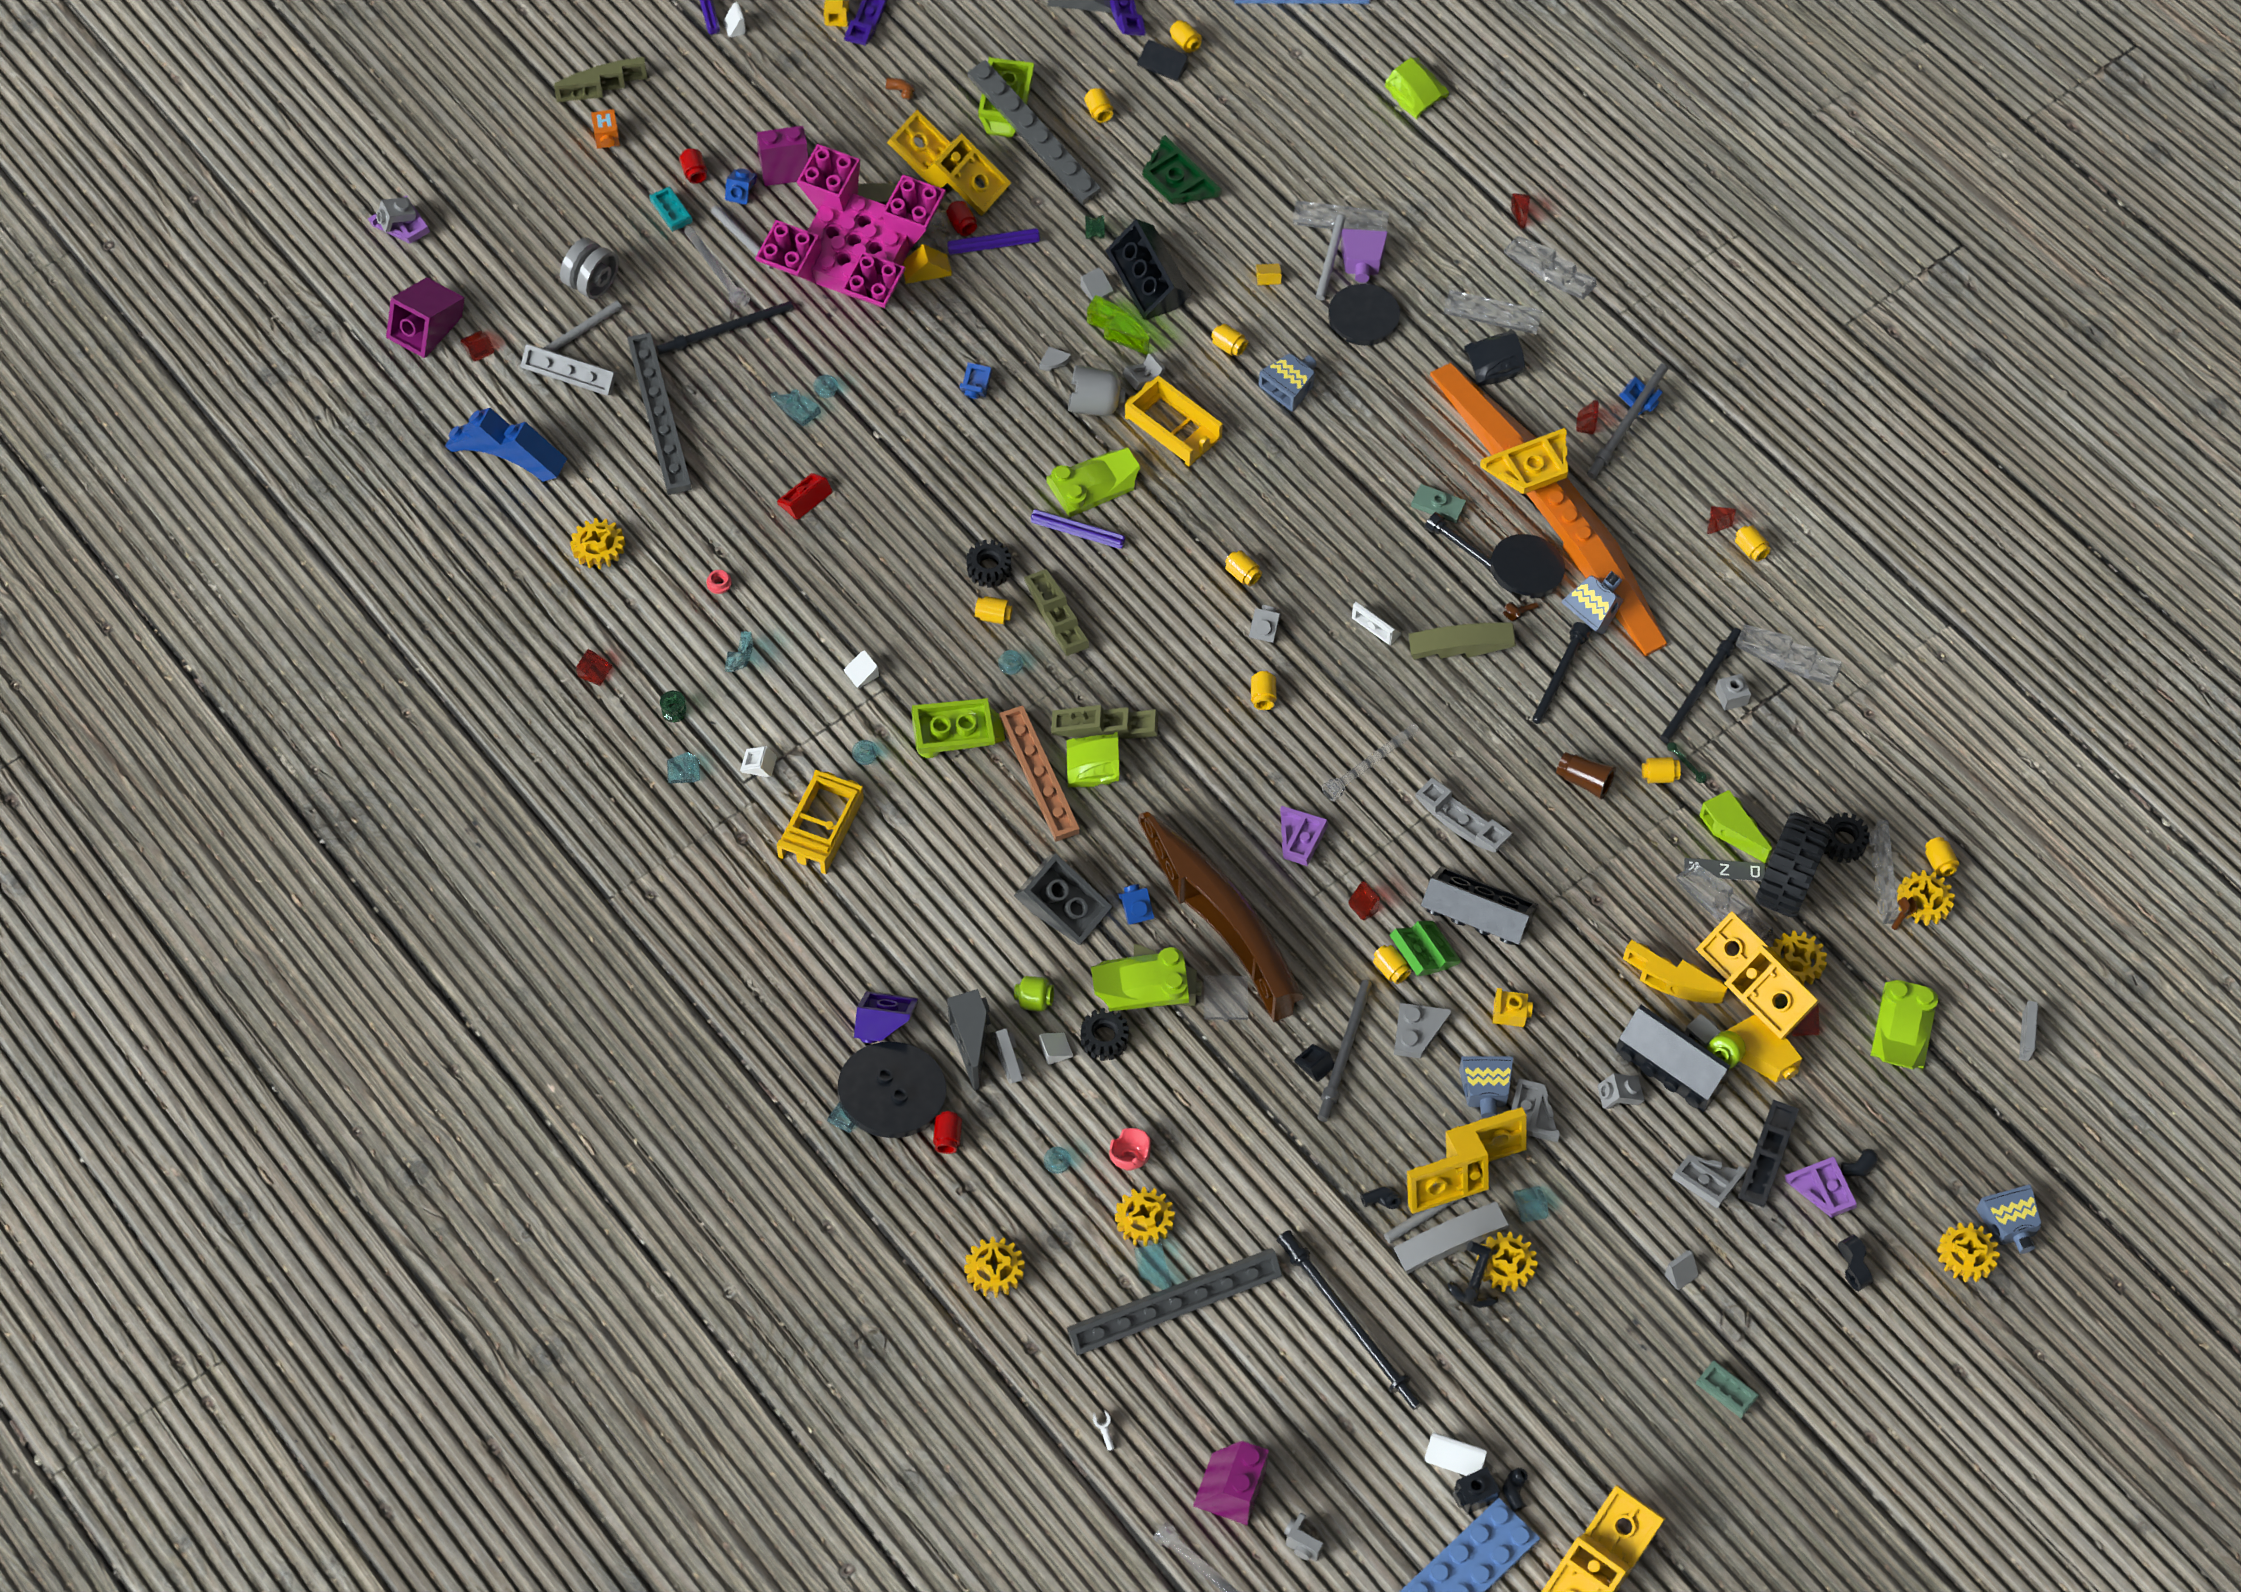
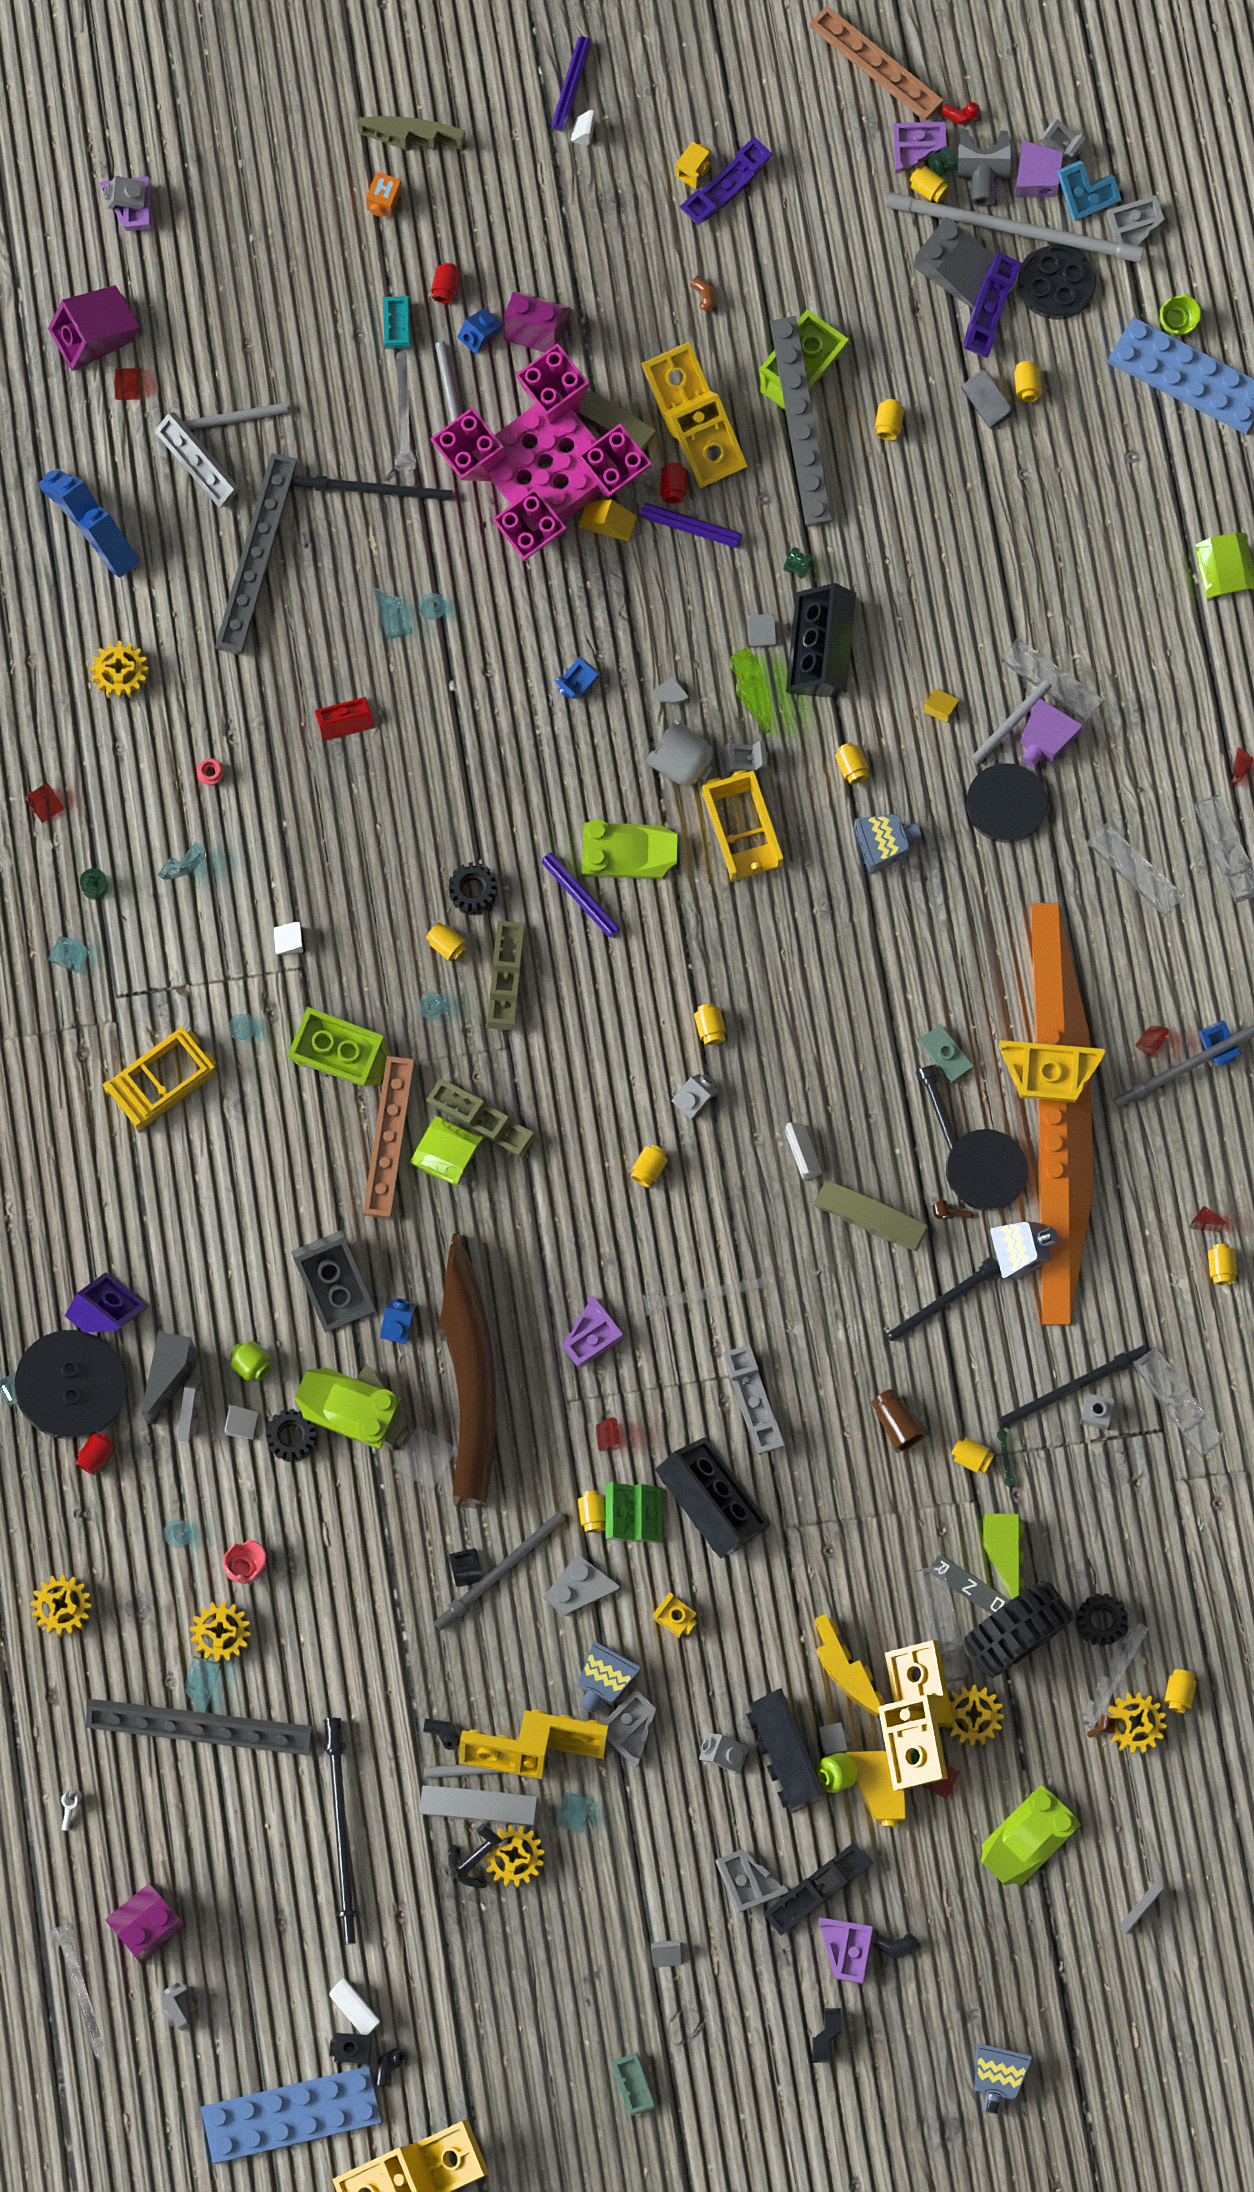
camera: 30 degrees right, 15 degrees up
(589, 268) = (274, 357): light grey wheel -> none
(759, 761) = (141, 983): white slope -> none
(1177, 175) = (918, 544): dark green wing -> none
(1496, 358) = (1103, 923): black slope -> none
(1957, 1254) = (924, 2075): yellow gear -> none

